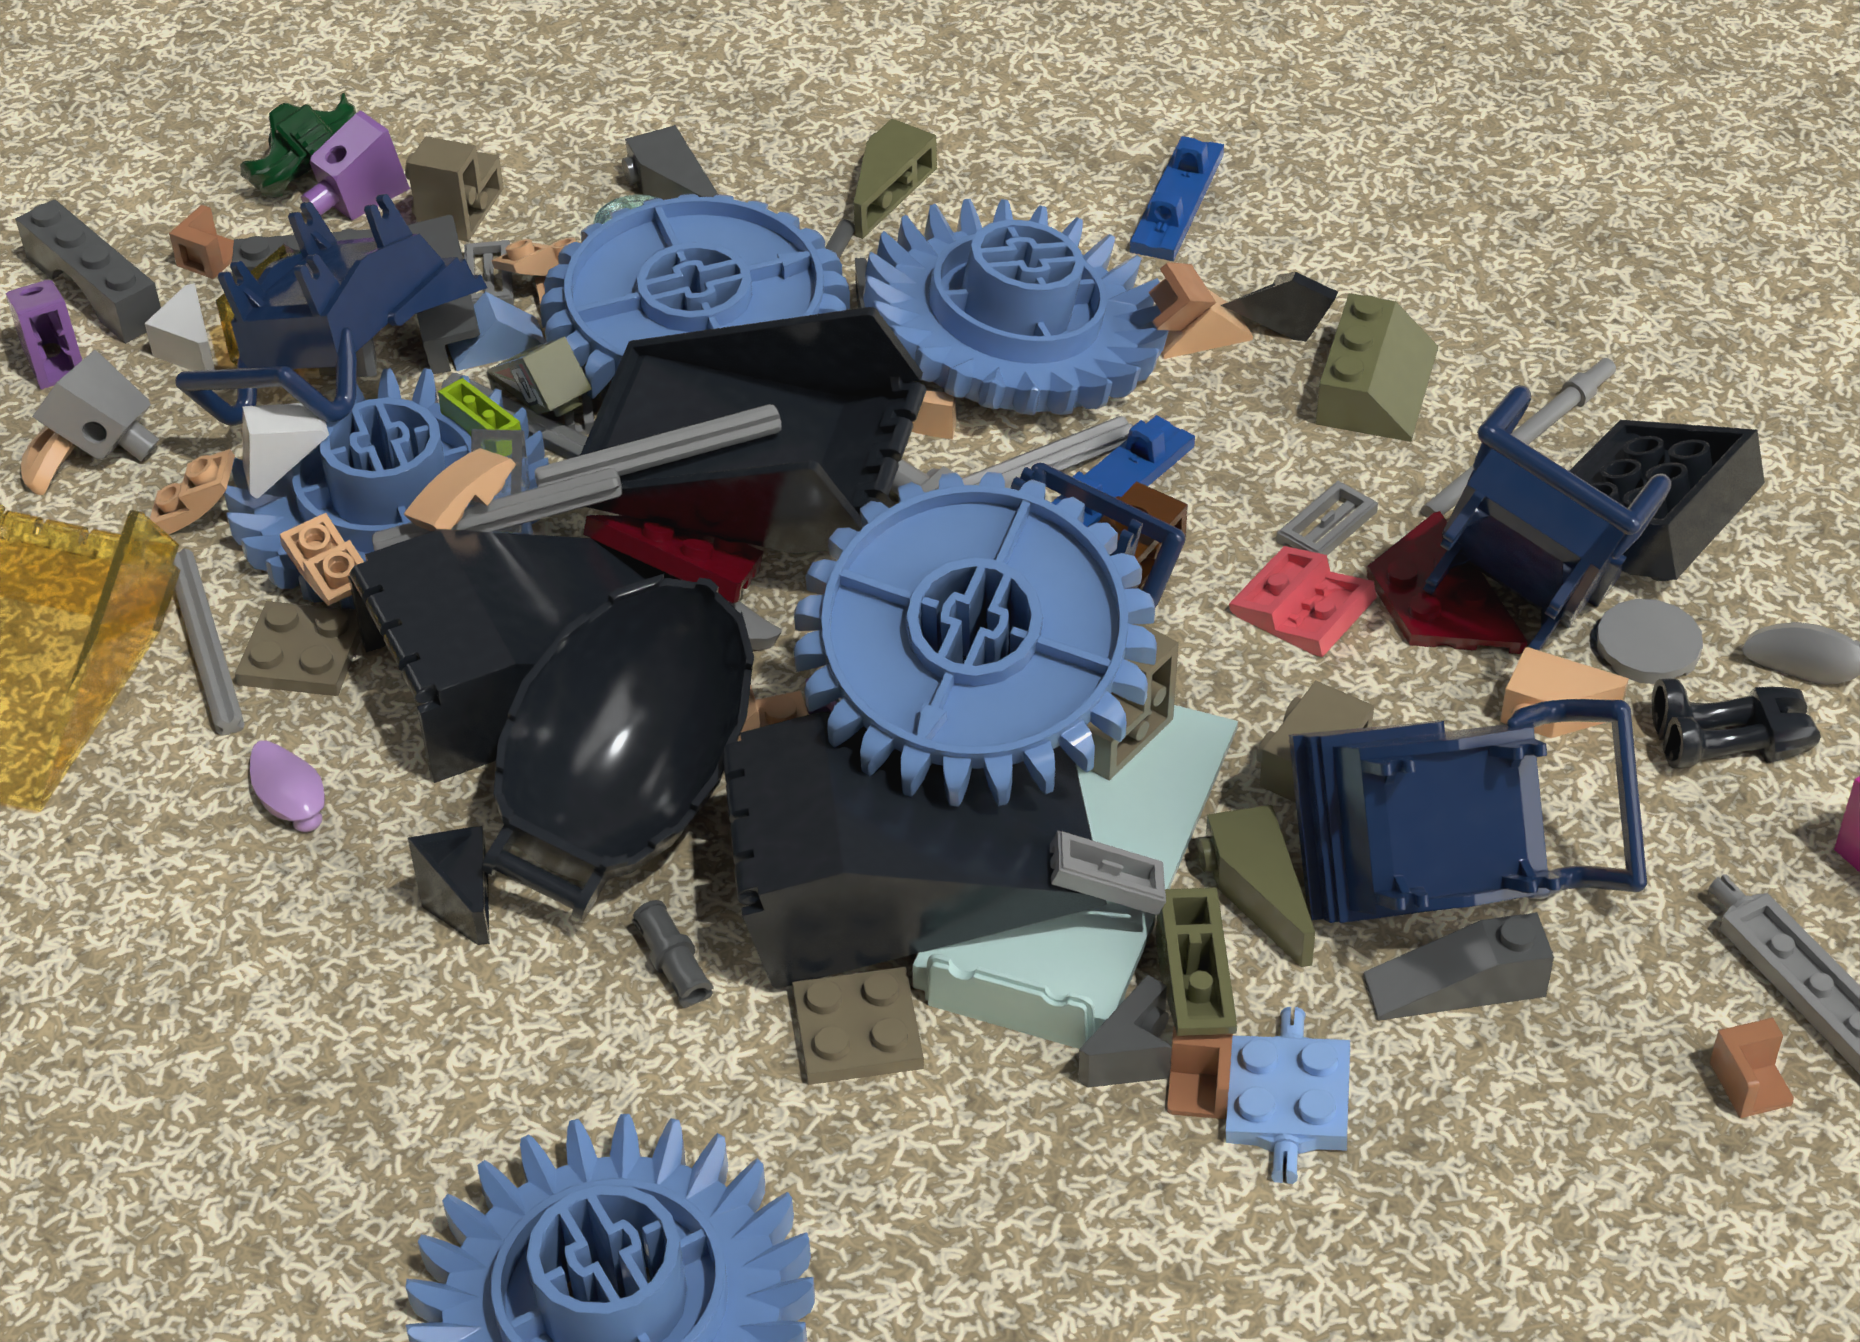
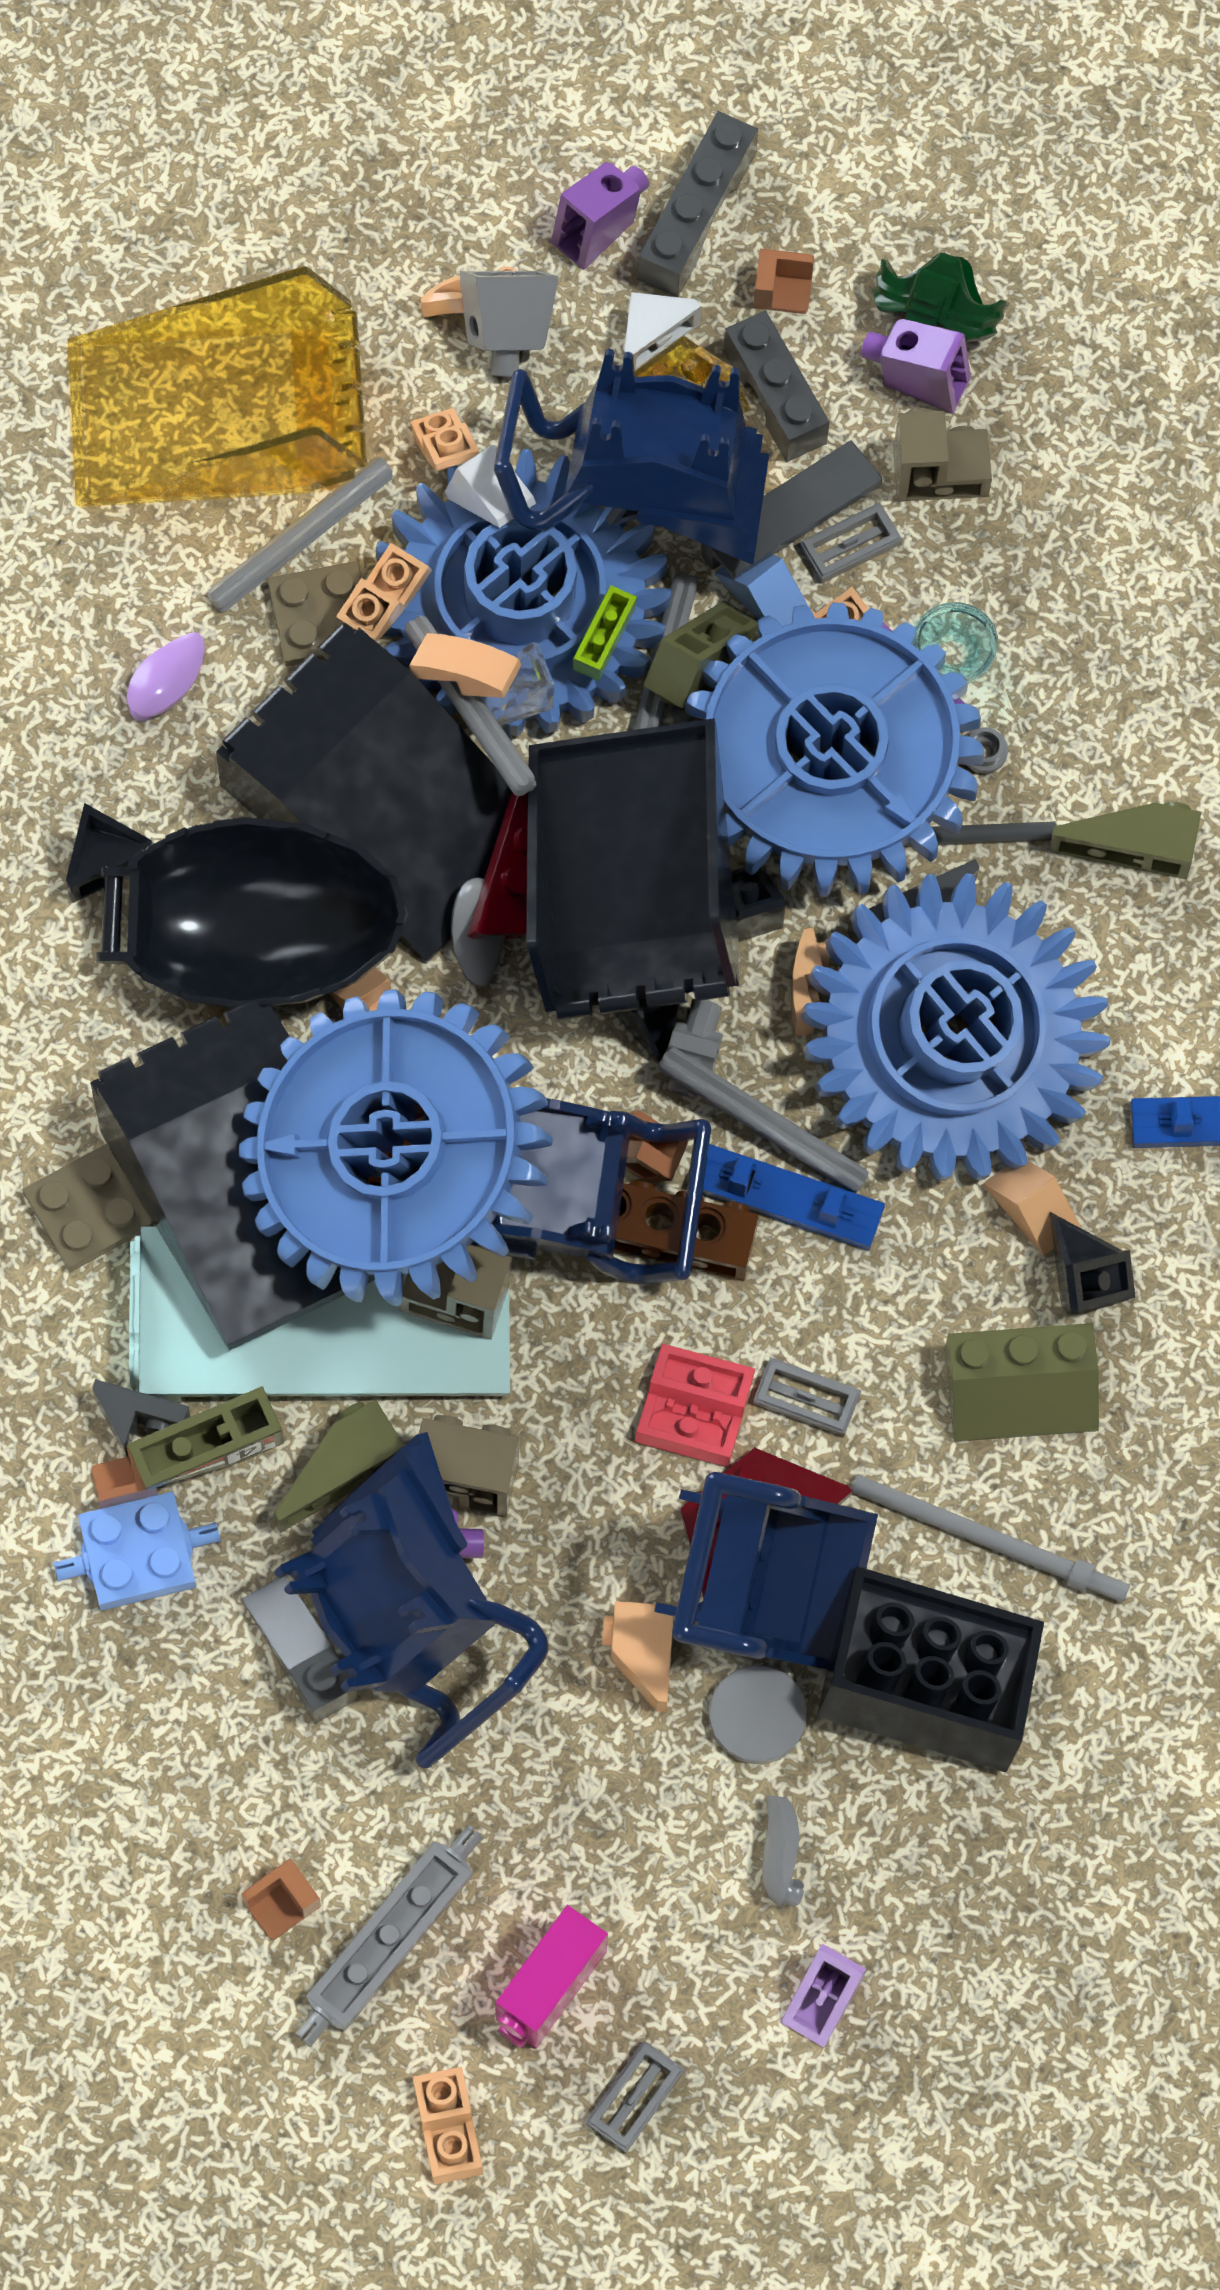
camera: 65 degrees right, 25 degrees up
(530, 257) = (863, 579): light nougat slope -> none
(665, 165) = (1056, 634): dark grey slope -> none
(667, 446) = (594, 802): light grey axle -> none
(672, 953) = (102, 1043): dark grey pin -> none
(1107, 872) = (234, 1300): light grey tile -> none
(1180, 297) = (1010, 1171): nougat panel -> none
(1771, 716) = (664, 1758): black piece -> none

